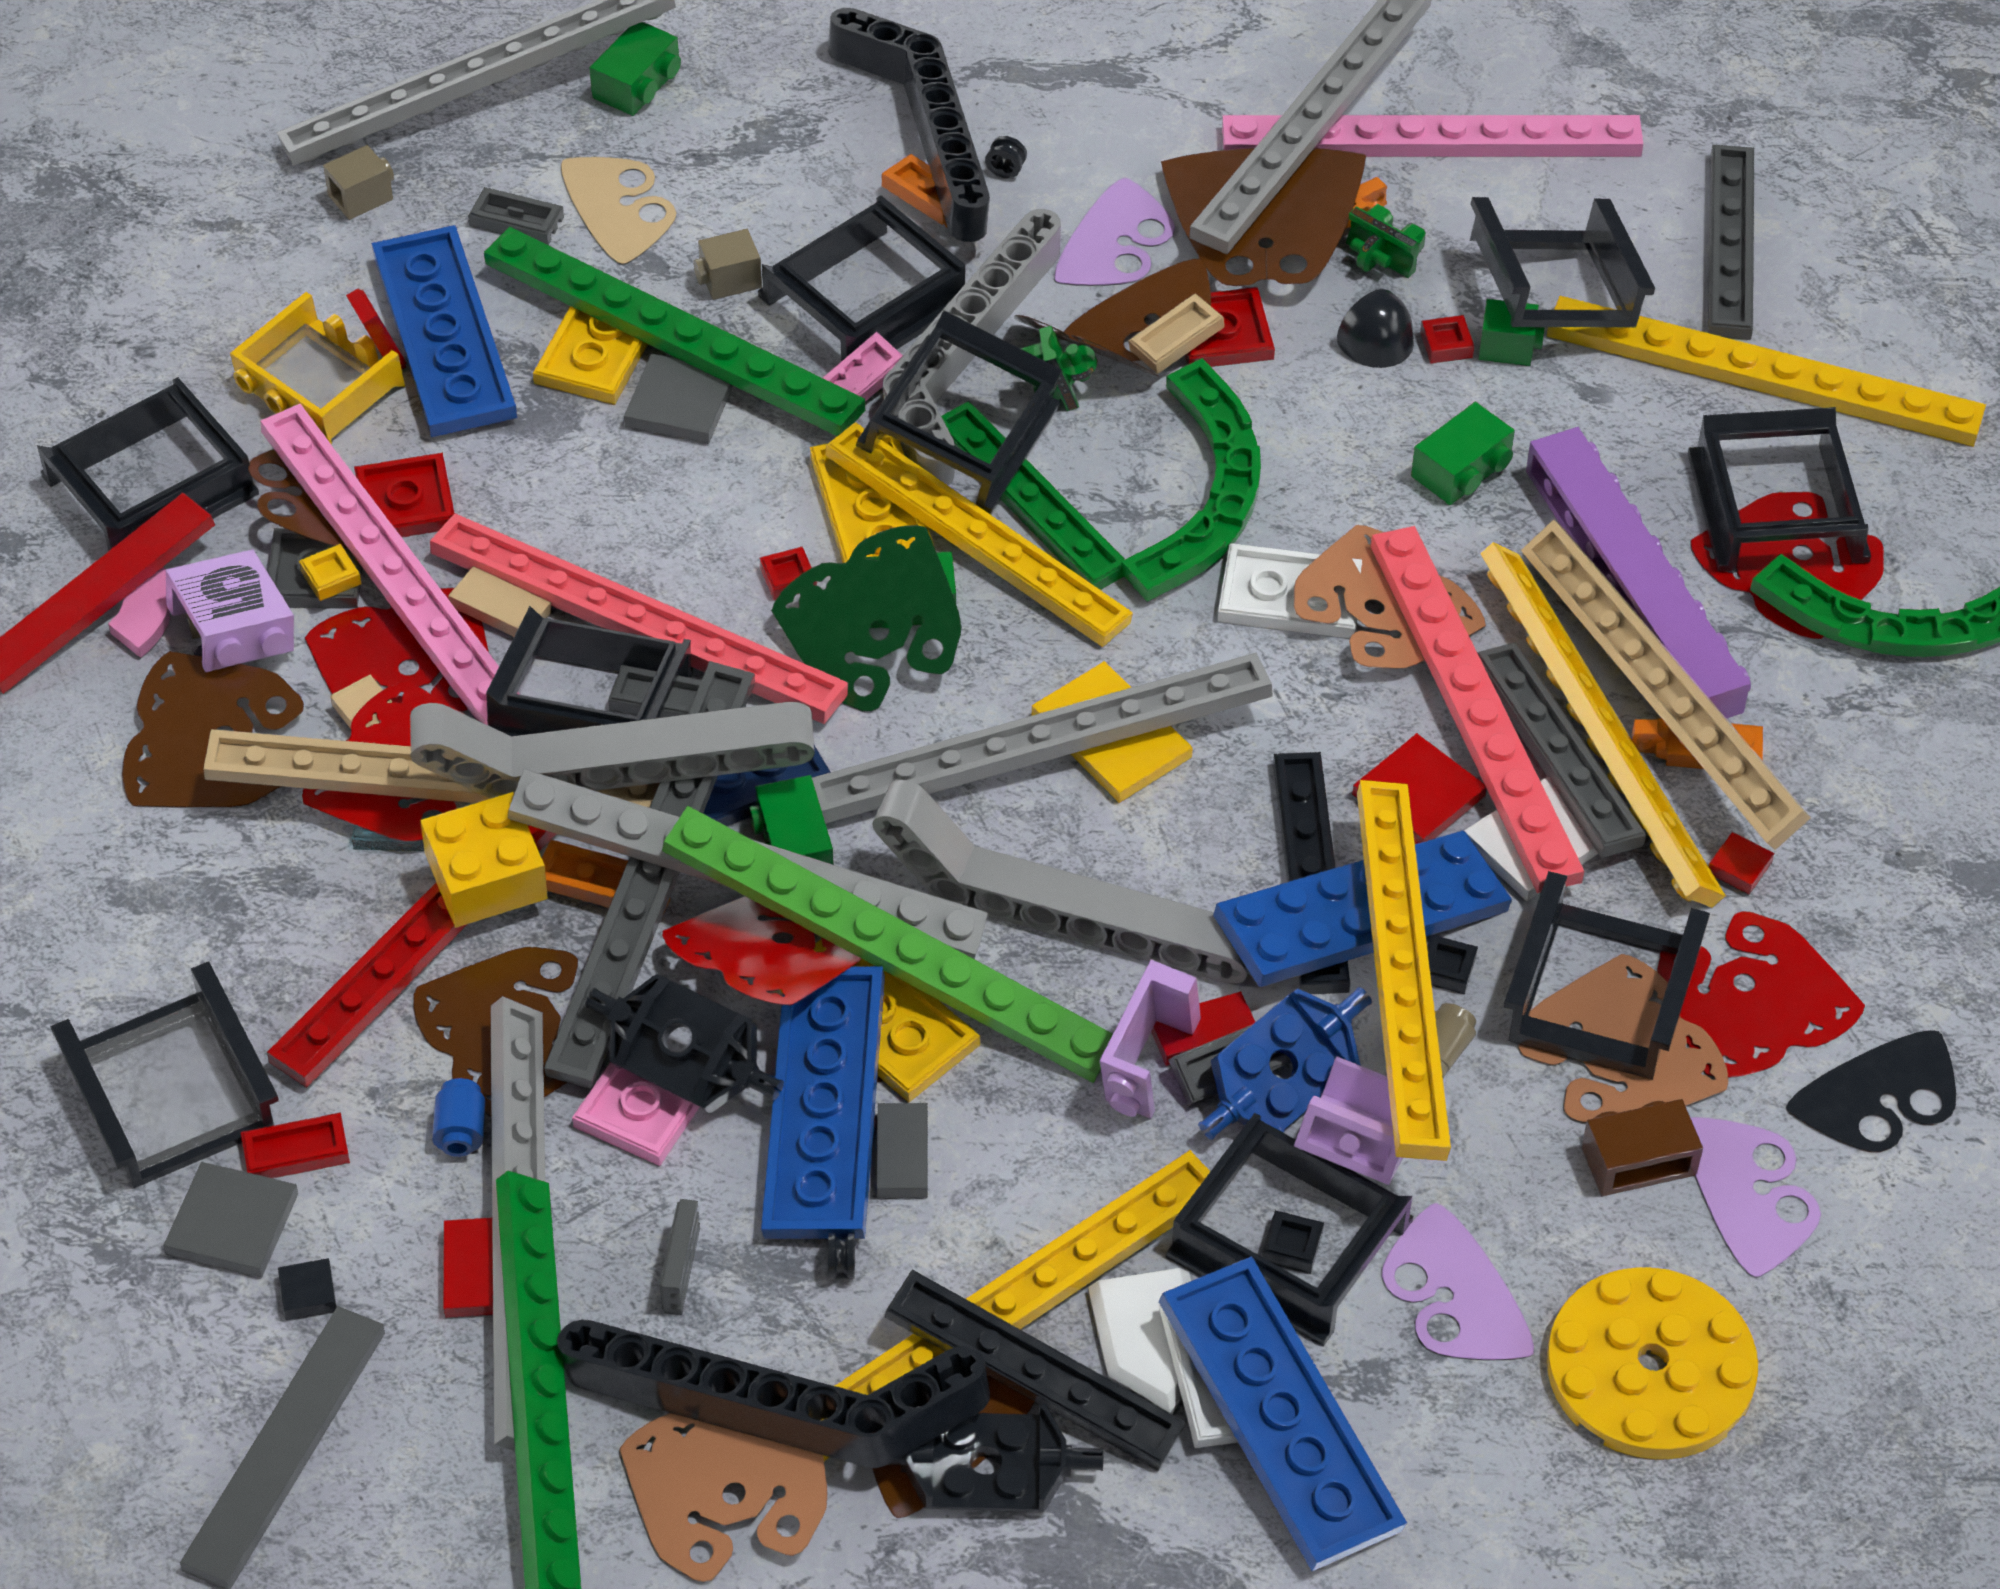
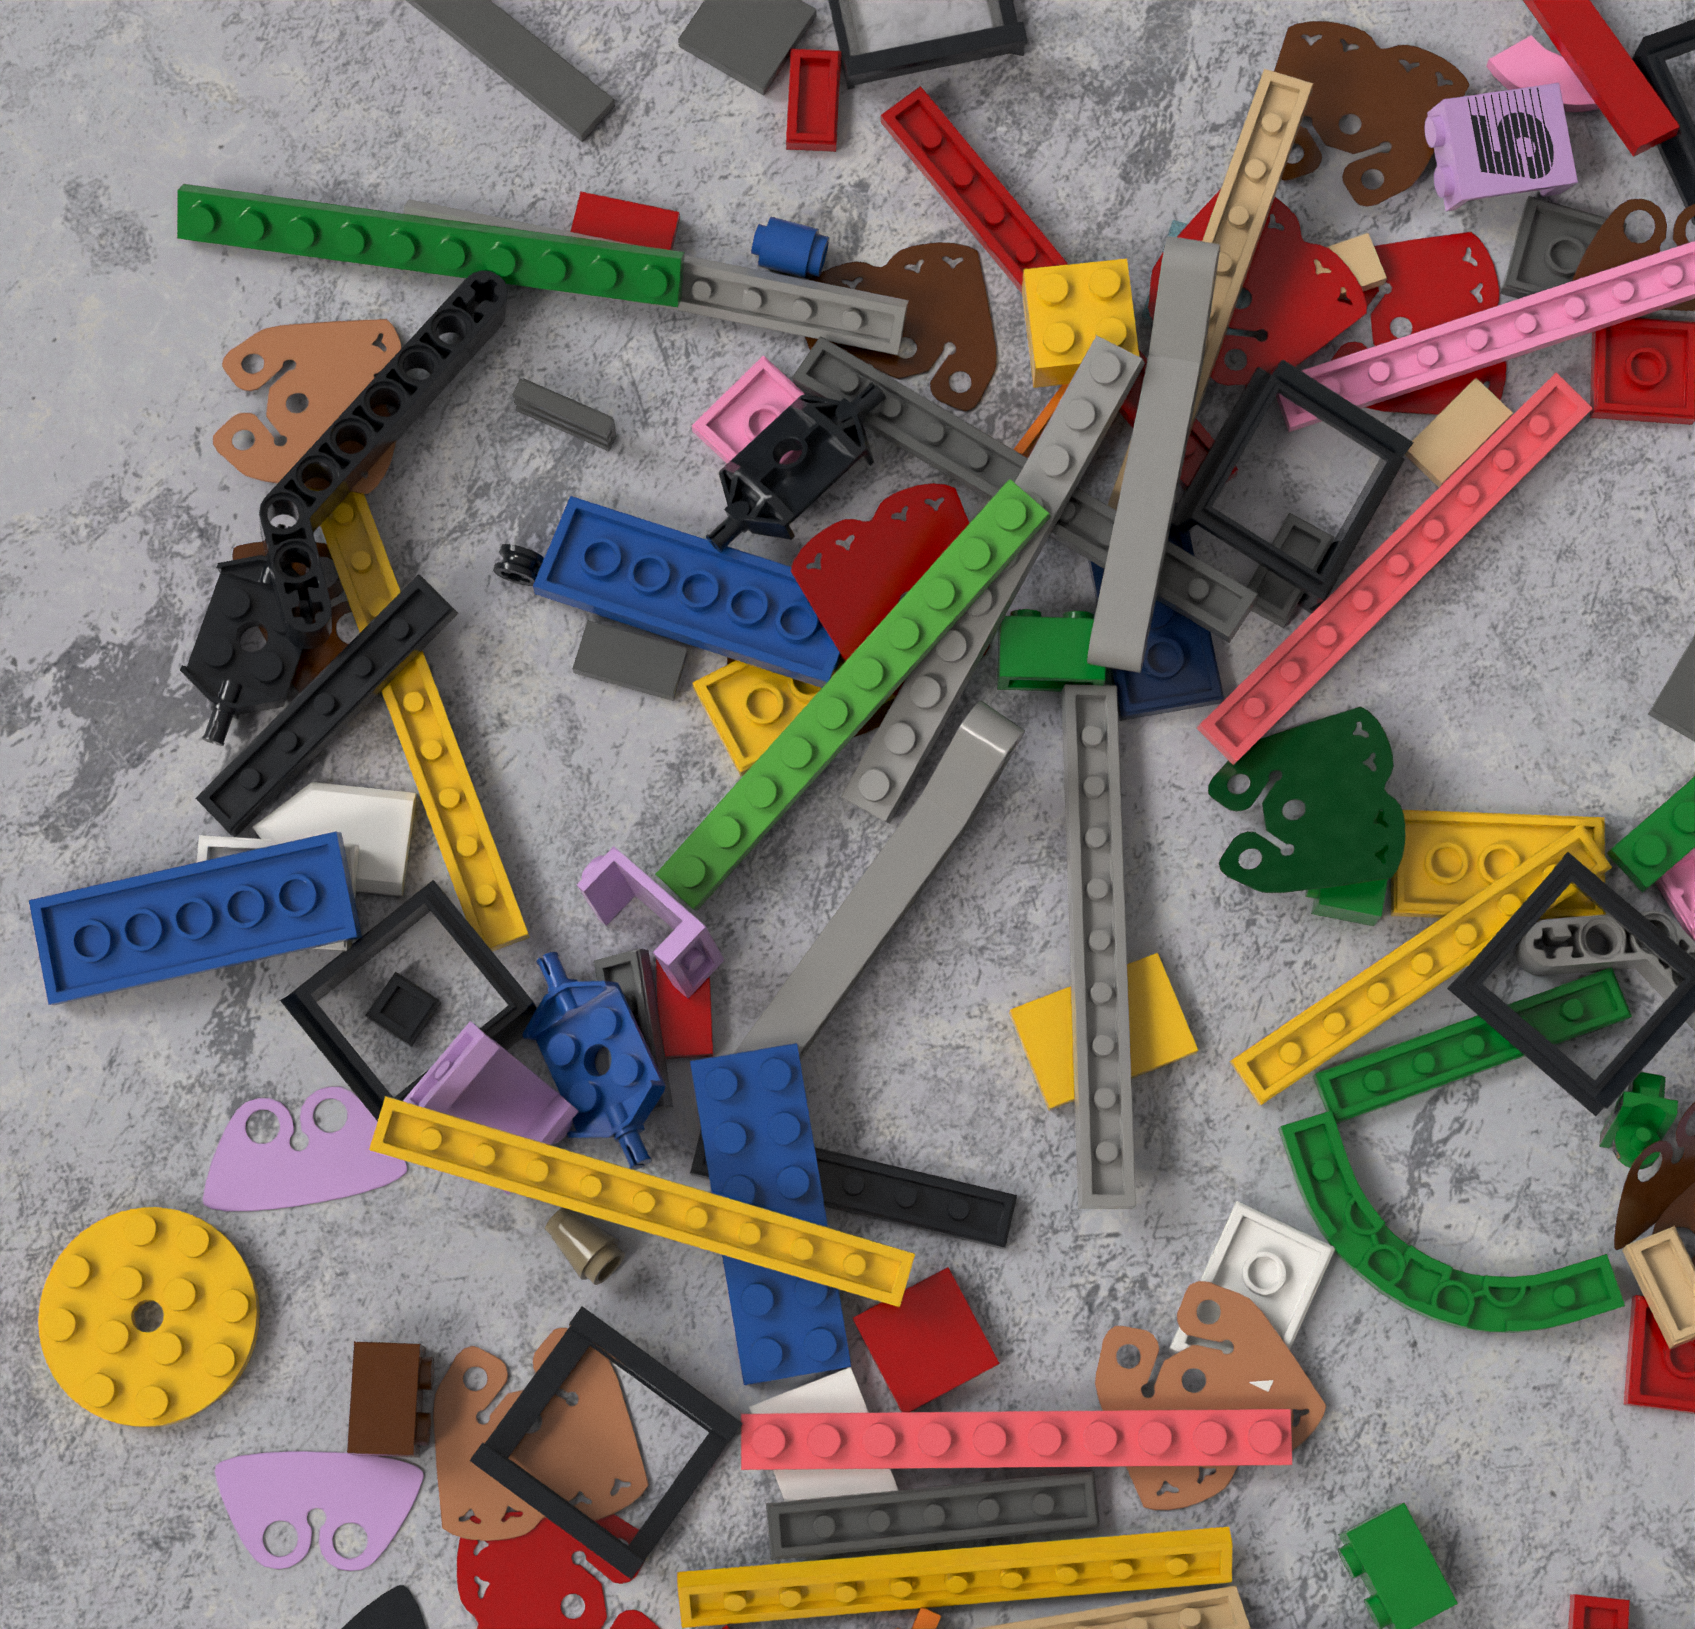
camera: 105 degrees right, 25 degrees up
(307, 1289) = (647, 80): black tile -> none
(330, 572) = (1539, 263): yellow tile -> none
(783, 568) = (1425, 748): red tile -> none
(1377, 330) = (1623, 1542): black helmet -> none
(1450, 963) = (688, 1288): black tile -> none

